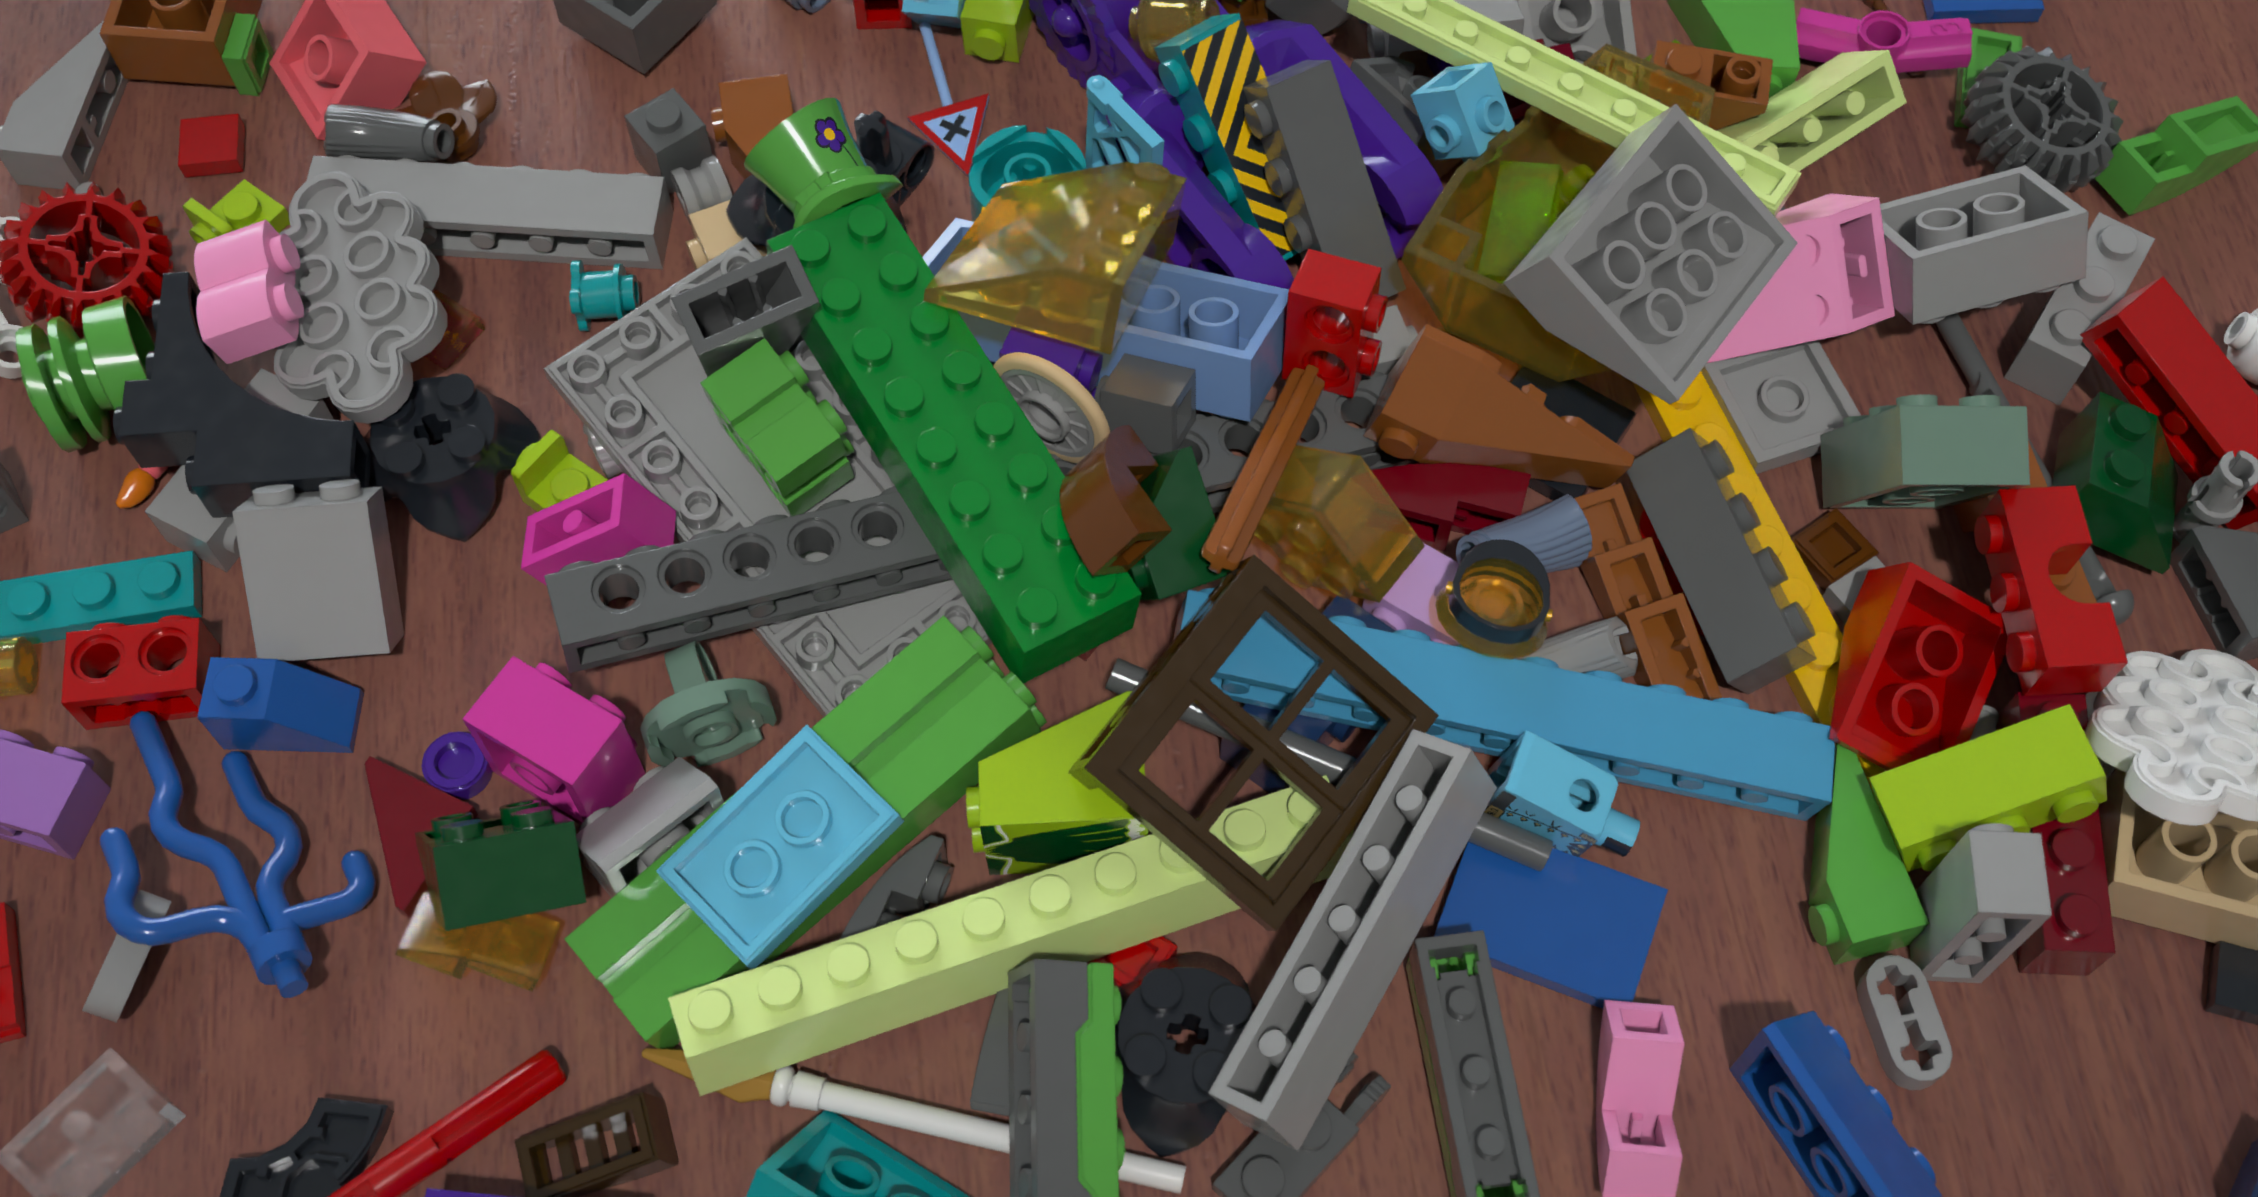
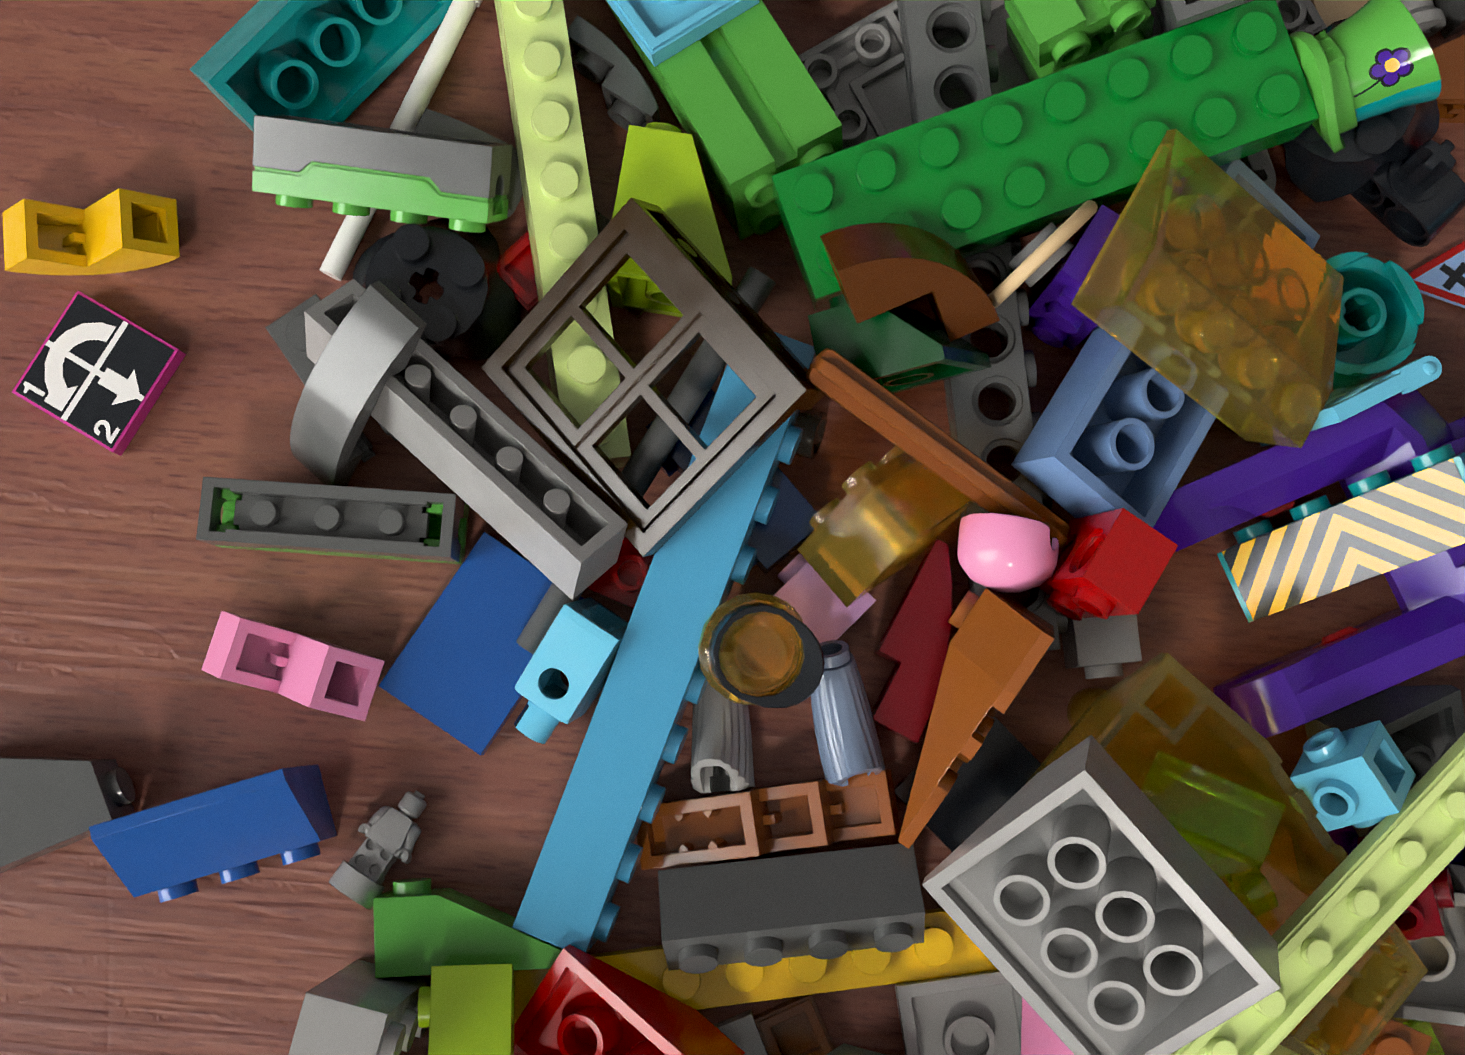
camera: 105 degrees right, 20 degrees up
(1152, 399) = (1045, 364): dark grey brick -> none
(1319, 168) = (1293, 606): dark grey brick -> none
(1338, 1055) = (347, 381): none -> slope
(1342, 405) = (1006, 551): none -> bright pink hair
(1781, 965) = (390, 837): none -> light grey piece
(1915, 1013) = (313, 947): light grey beam -> none

